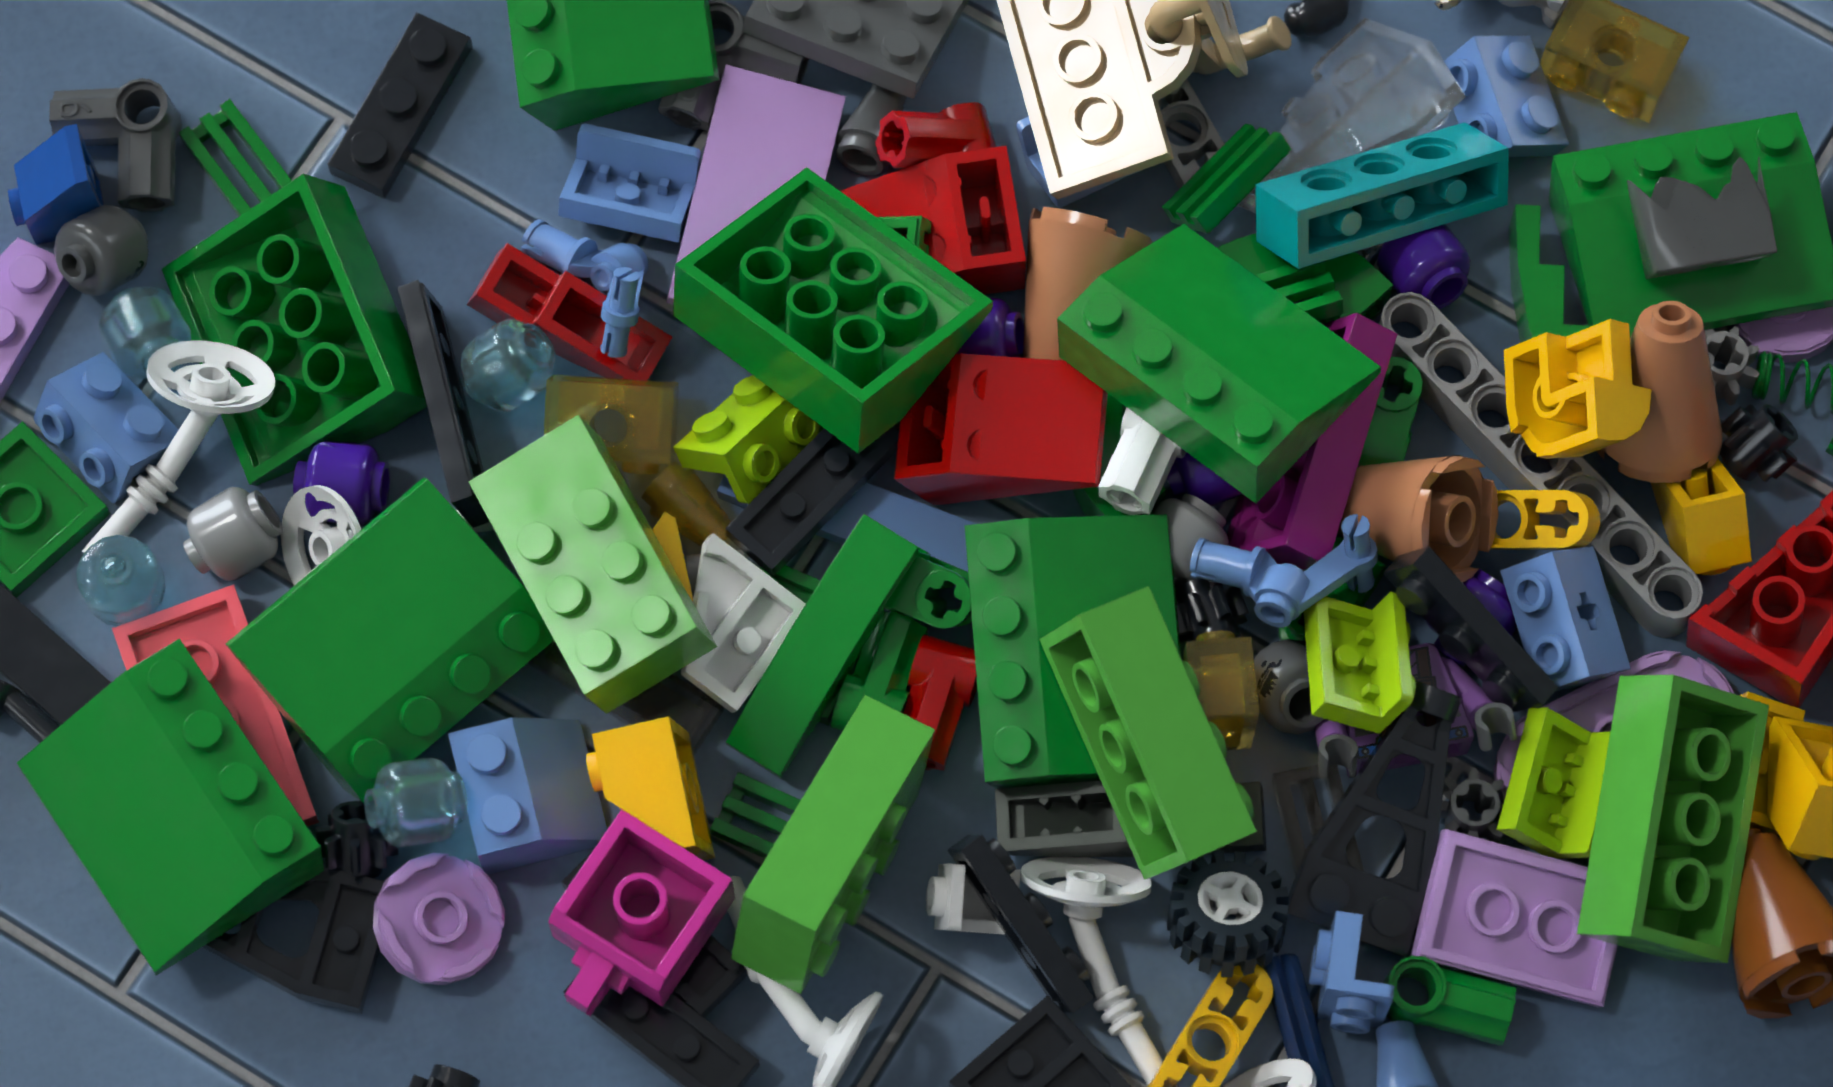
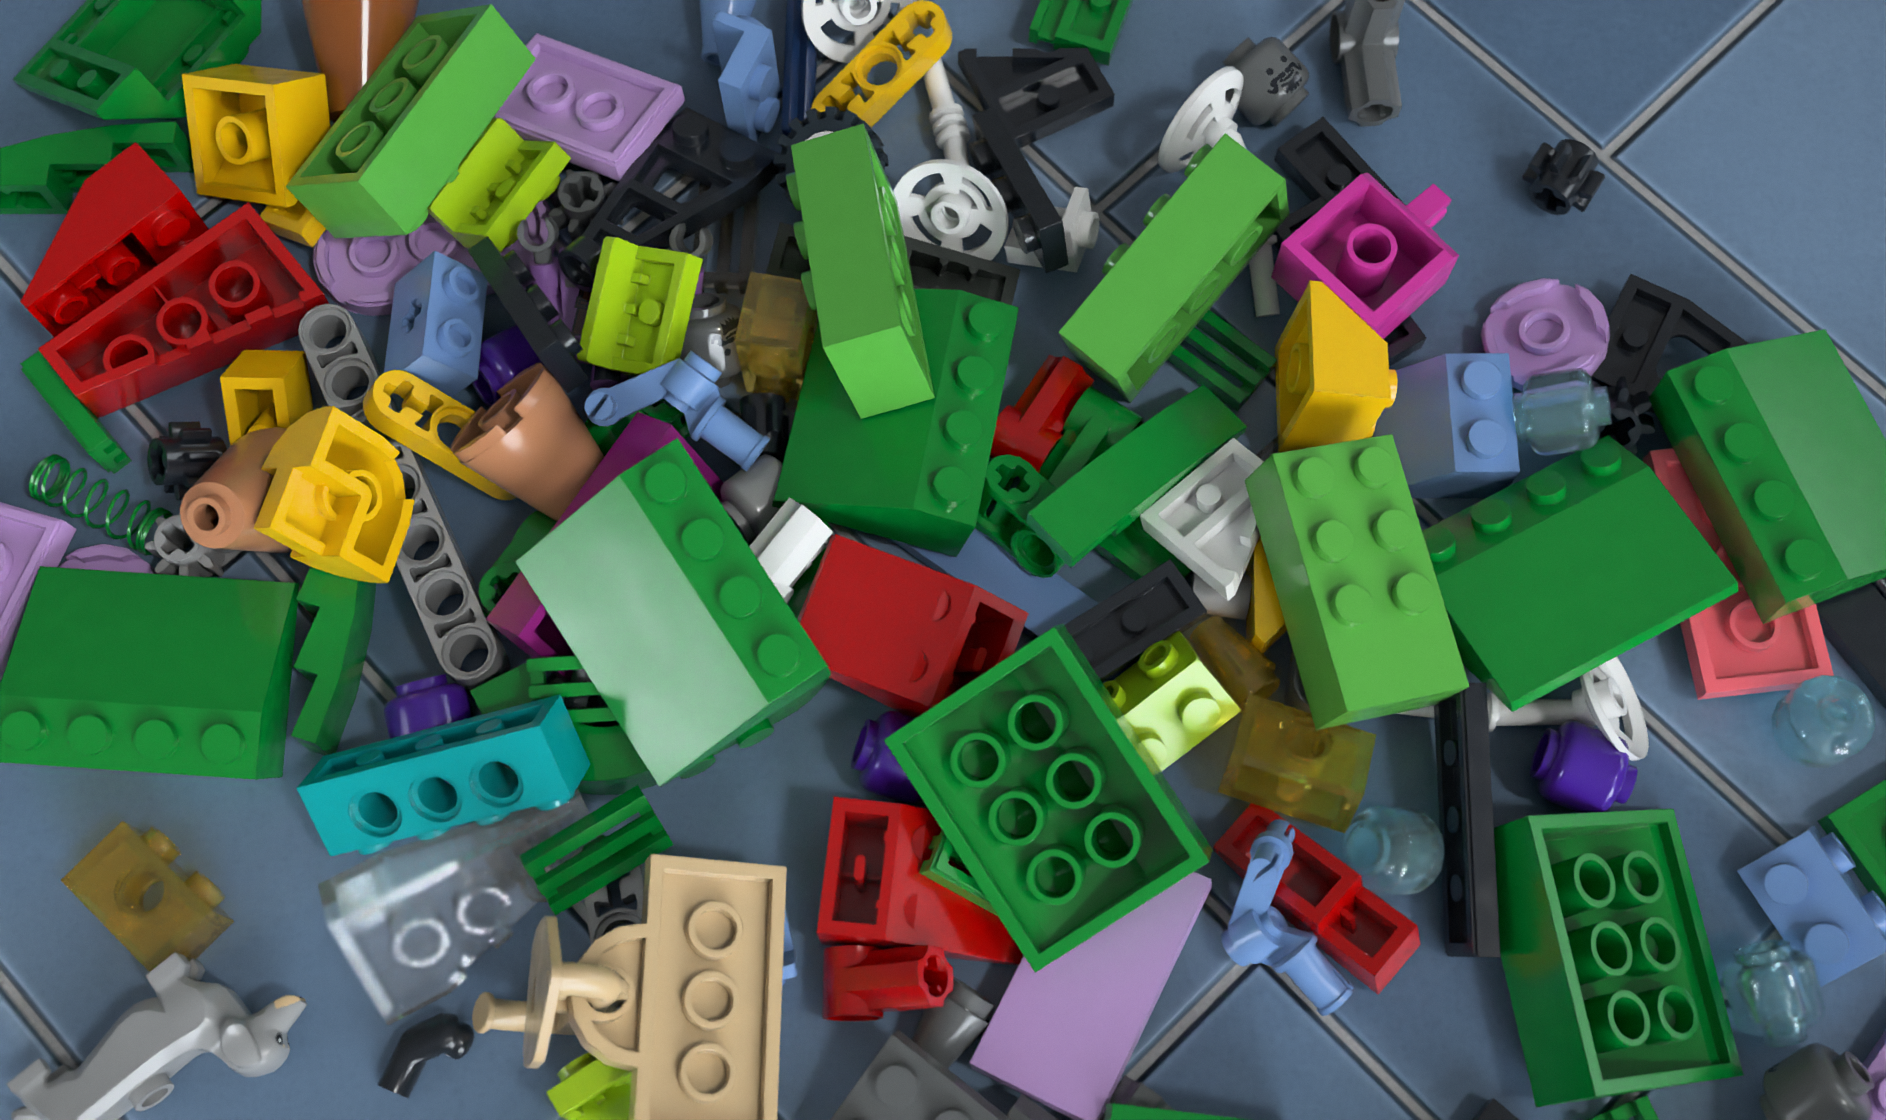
camera: 165 degrees left, 0 degrees up
(207, 396) = (1726, 876): white dish -> none
(232, 533) = (1700, 748): light grey head -> none
(630, 183) = (1224, 1025): medium blue bracket -> none
(1063, 259) = (783, 783): nougat cone -> none
(1455, 1001) = (668, 58): green piece -> none
(1507, 95) = (275, 885): medium blue bracket -> none
(1691, 231) = (141, 634): dark grey piece -> none

